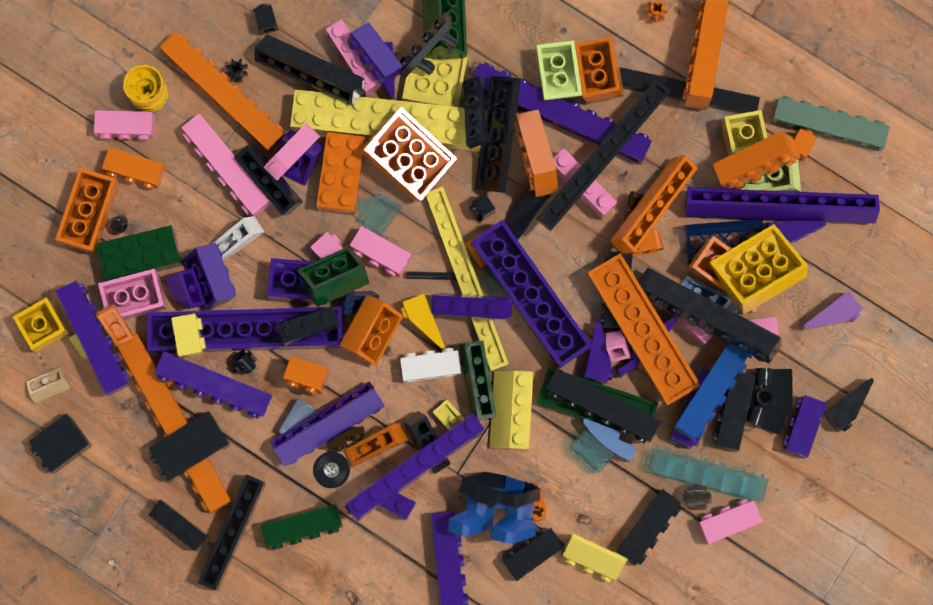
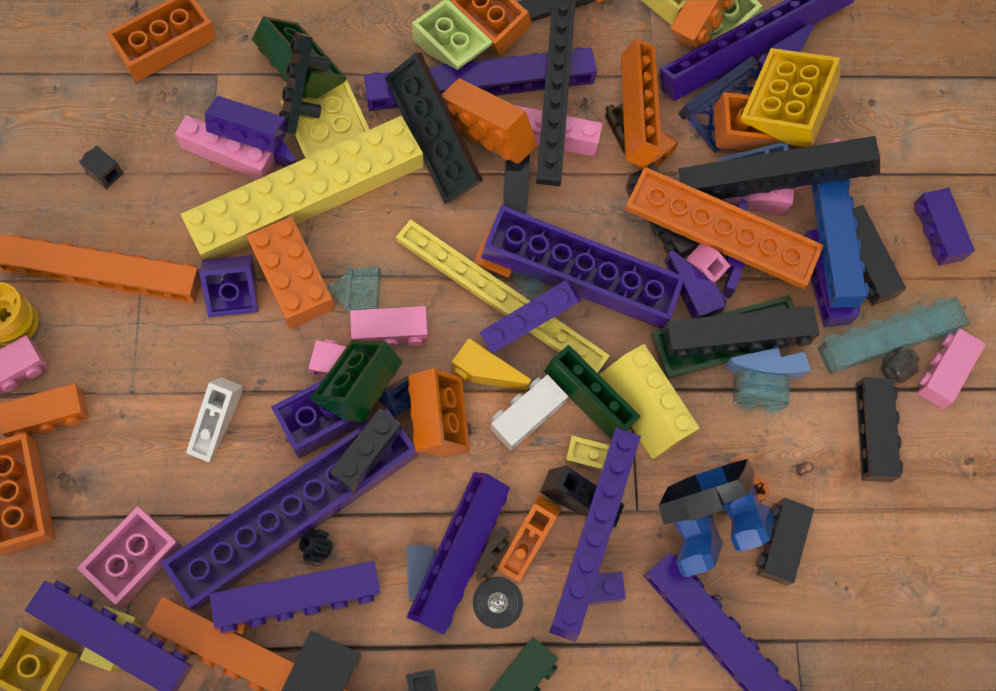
camera: 40 degrees left, 10 degrees down
(115, 325) = (128, 603): orange plate -> none
(119, 224) = (64, 486): black plate -> none
(139, 253) = (107, 501): dark green brick -> none
(186, 289) = (191, 506): dark purple slope -> none
(188, 335) = (228, 555): light yellow brick -> none
(211, 275) = (210, 475): dark purple slope -> none
(223, 161) = (152, 342): bright pink brick -> none
(239, 74) = (101, 236): black gear -> none
(277, 191) = (211, 326): black brick -> none
(291, 151) = (219, 275): bright pink slope -> none
(306, 375) = (399, 512): orange brick -> none
(309, 69) = (183, 184): black brick -> none
(408, 154) = (351, 206): orange slope -> none
(431, 275) = (460, 319): black bar -> none
(475, 113) = (396, 118): black plate -> none
(482, 208) = (467, 215): black brick -> none
(593, 558) = (852, 499): light yellow slope -> none
(779, 388) = (902, 231): black panel -> none
(838, 312) = (886, 98): medium lavender slope -> none
(847, 409) = (968, 180): black slope -> none

